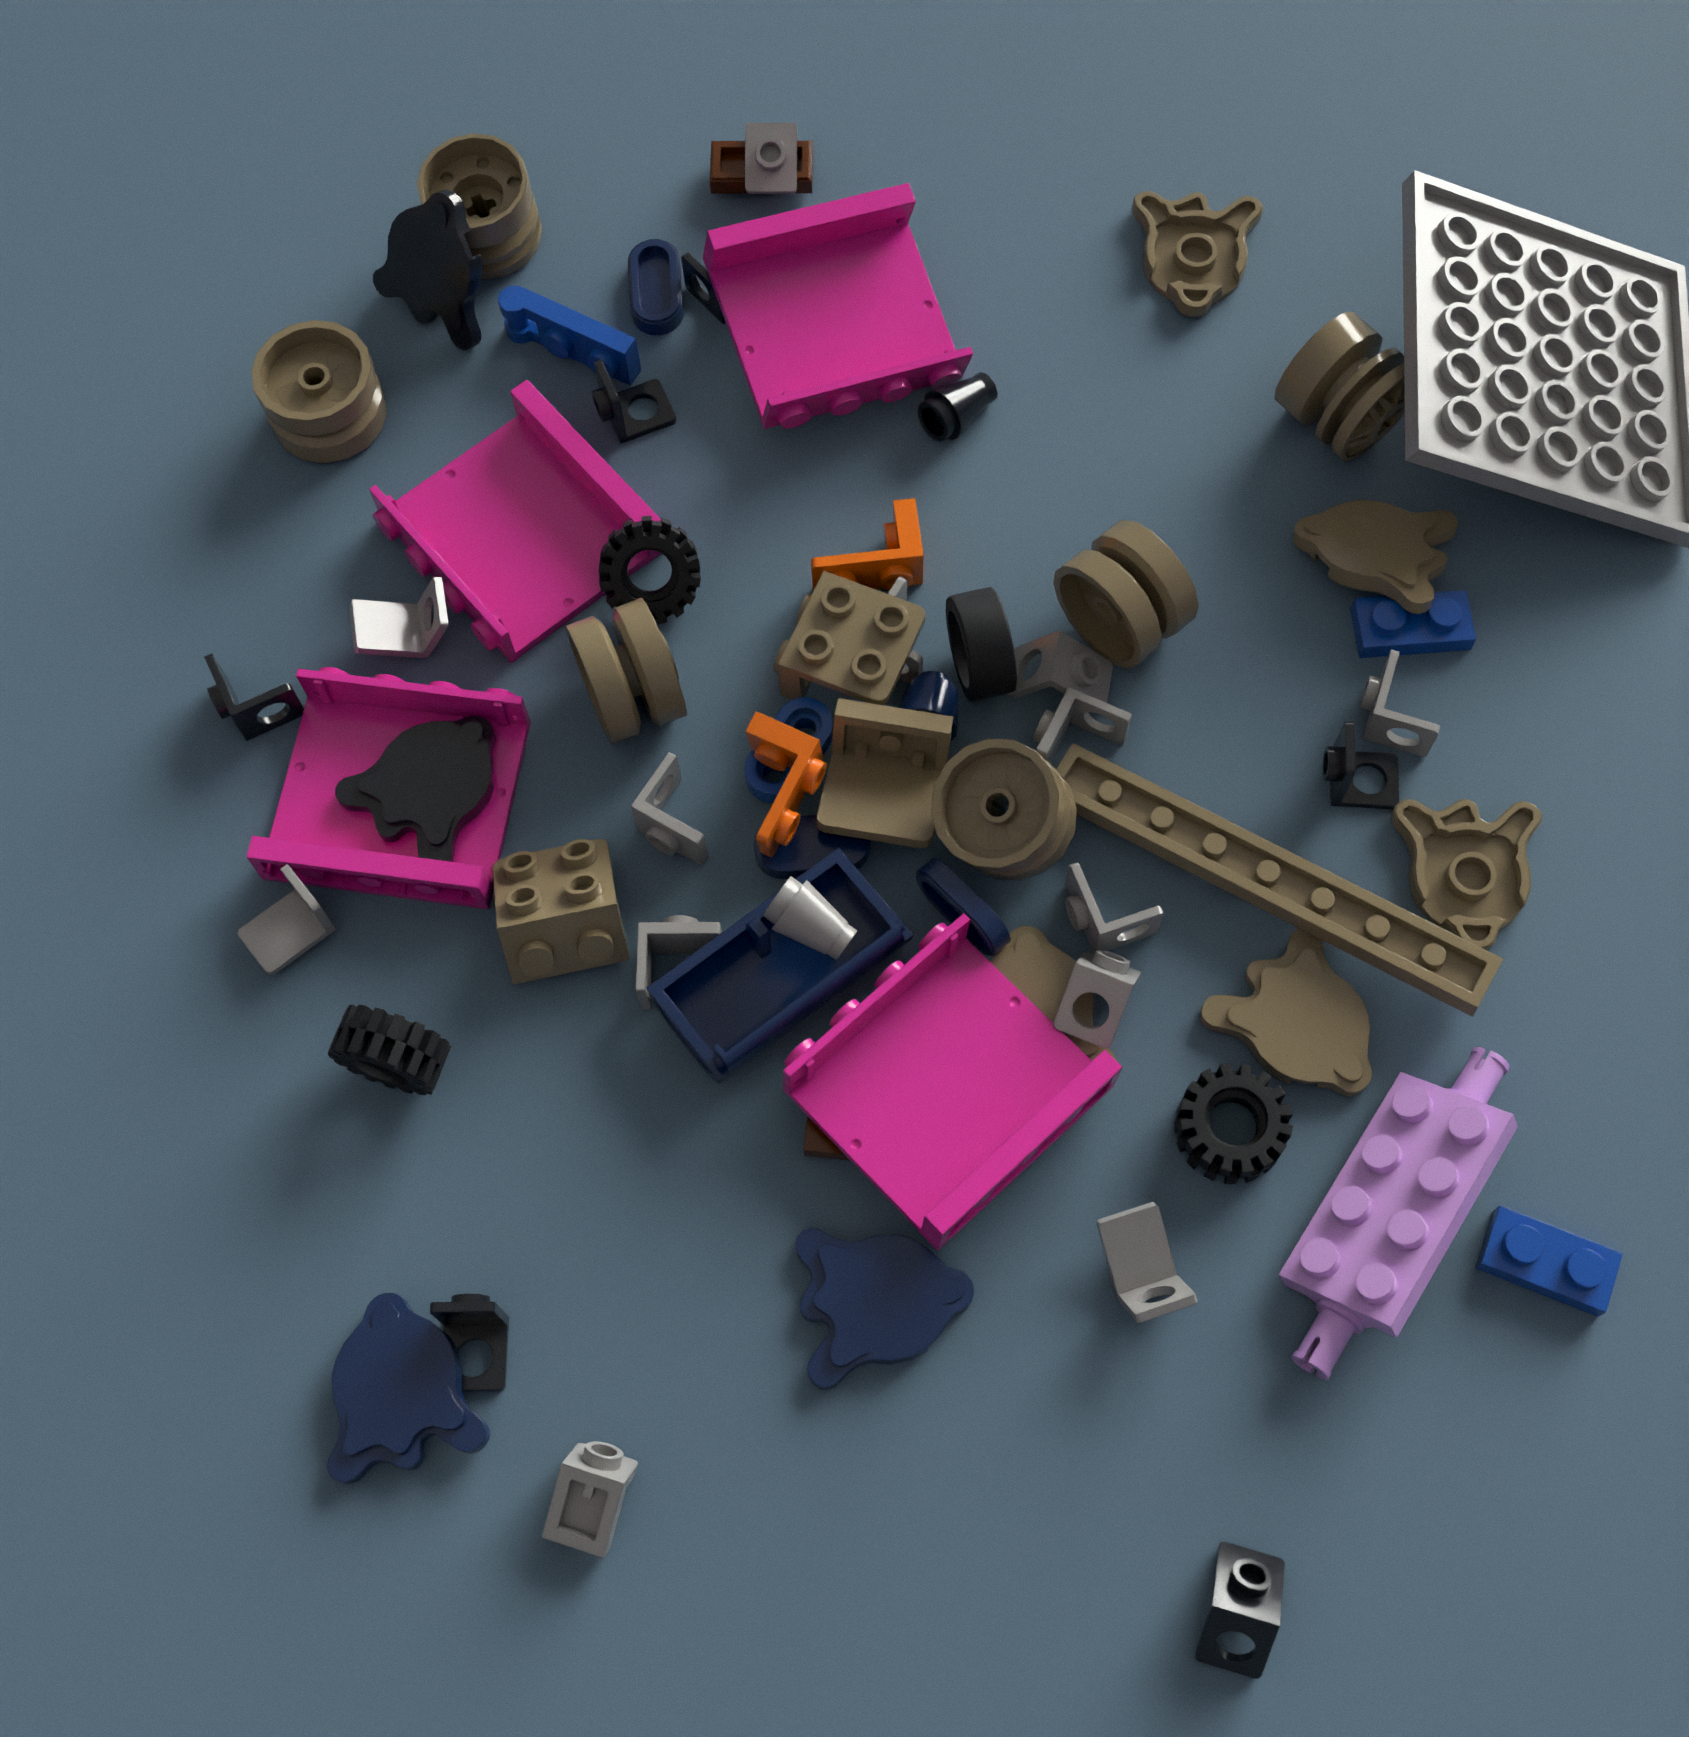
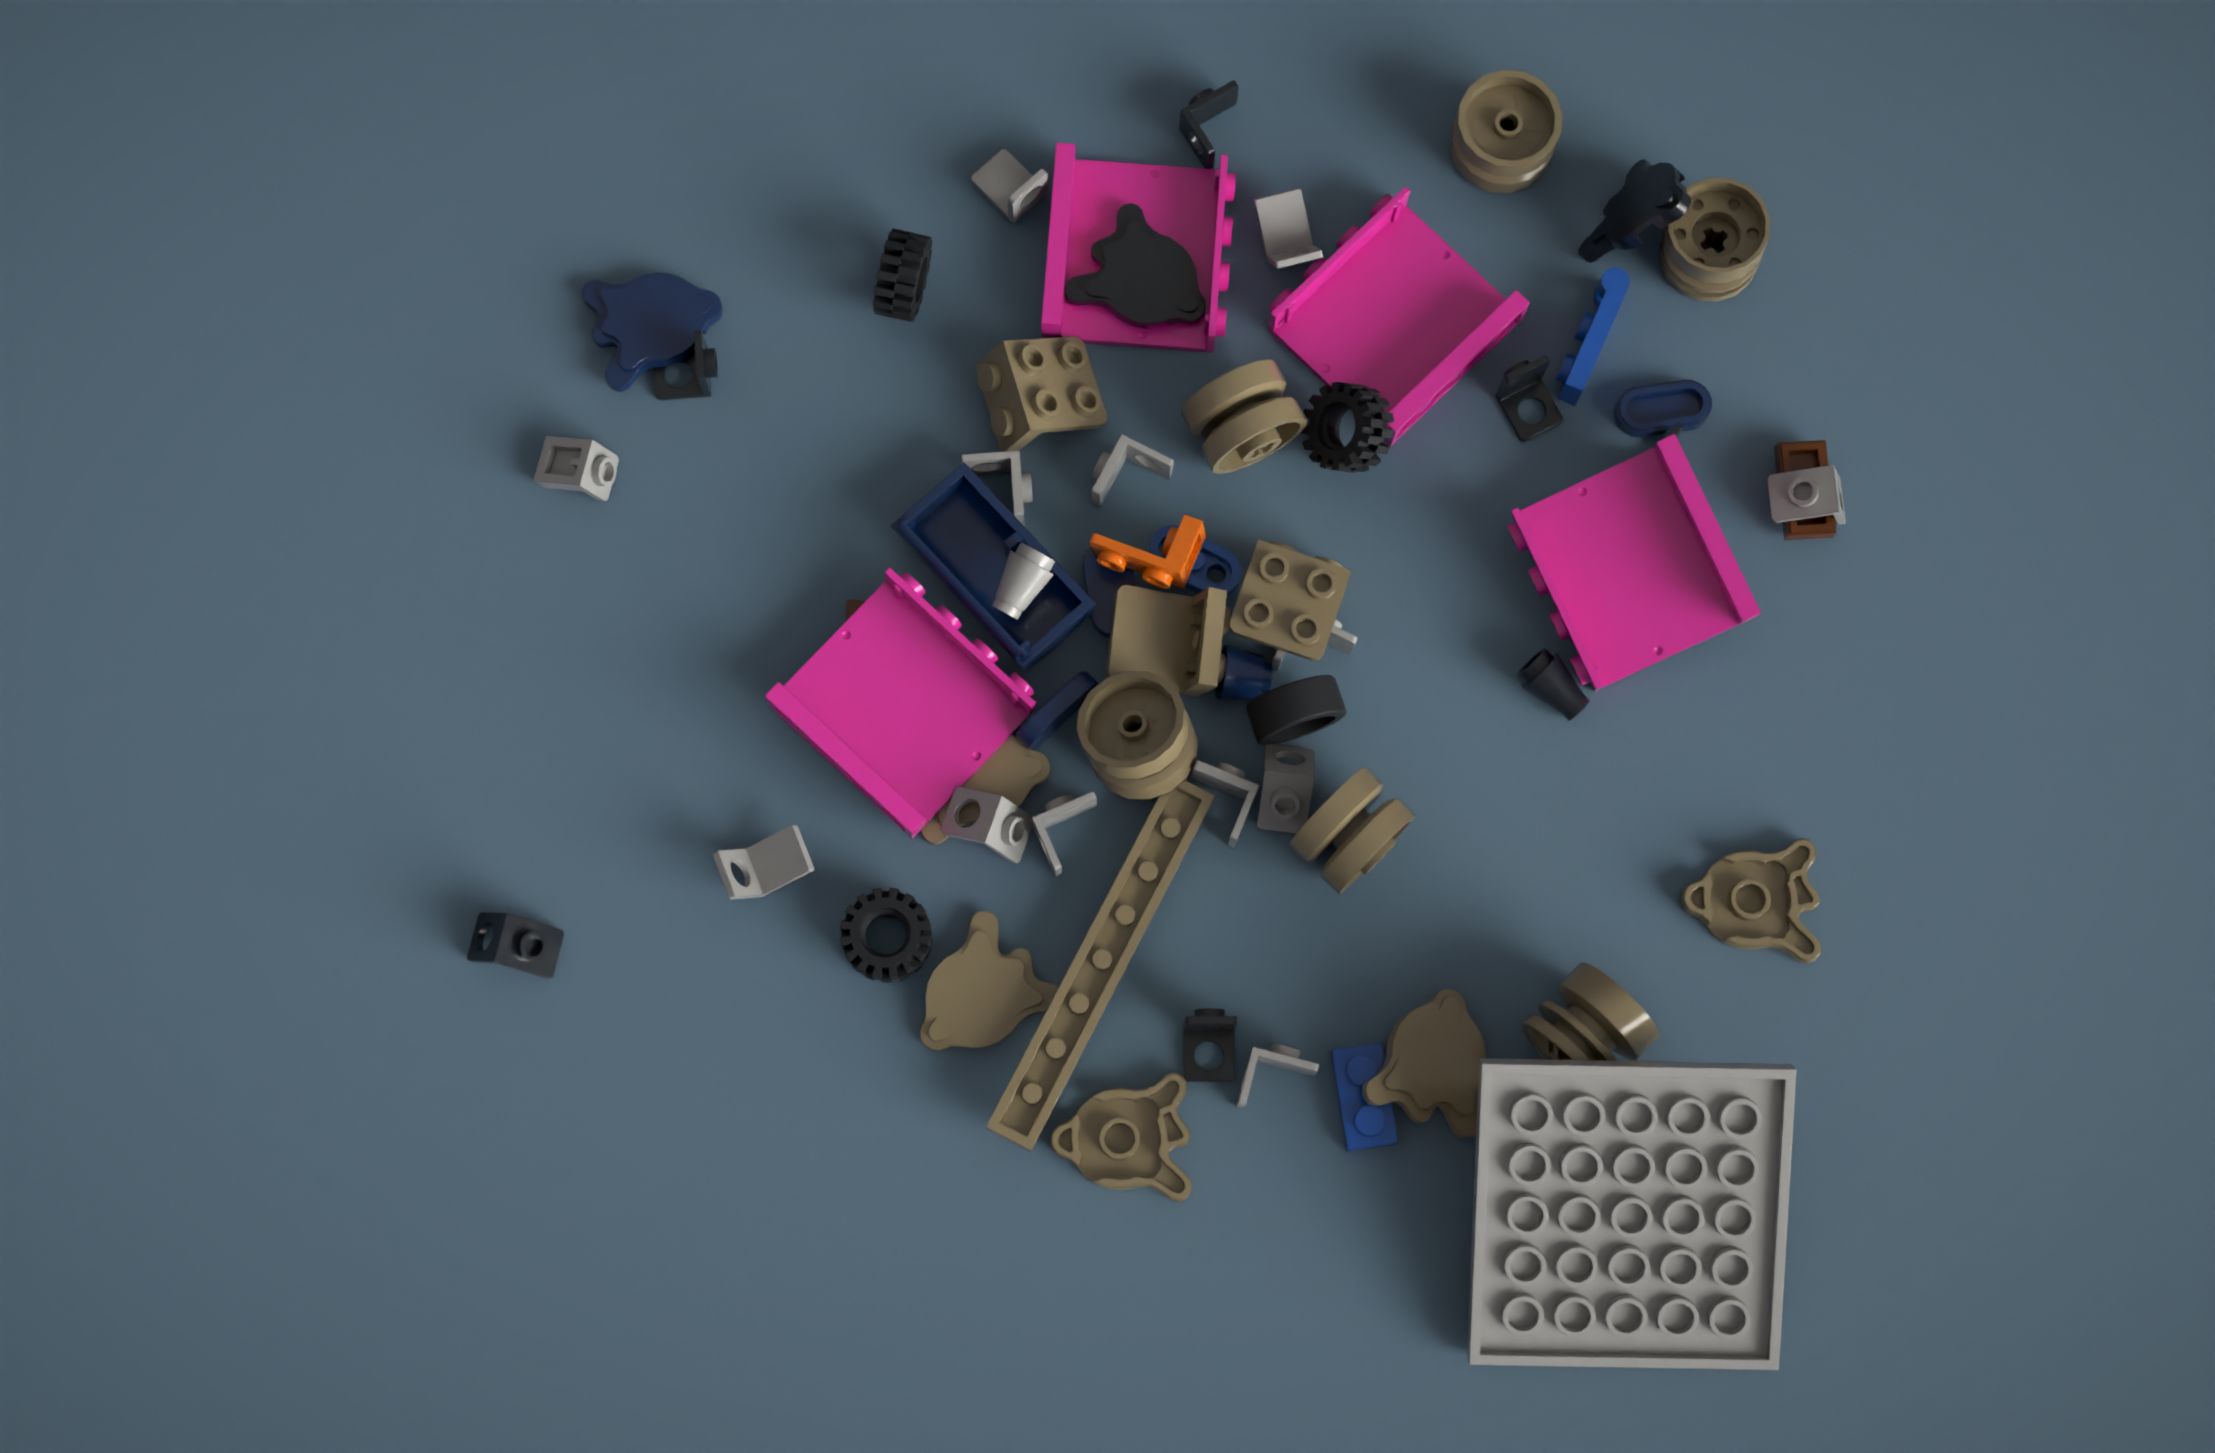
camera: 80 degrees right, 10 degrees up
(878, 1297) = (733, 664): dark blue tile -> none
(881, 568) = (1404, 642): orange bracket -> none
(1397, 1207) = (825, 1065): lavender plate -> none
(1549, 1261) = (789, 1189): blue plate -> none

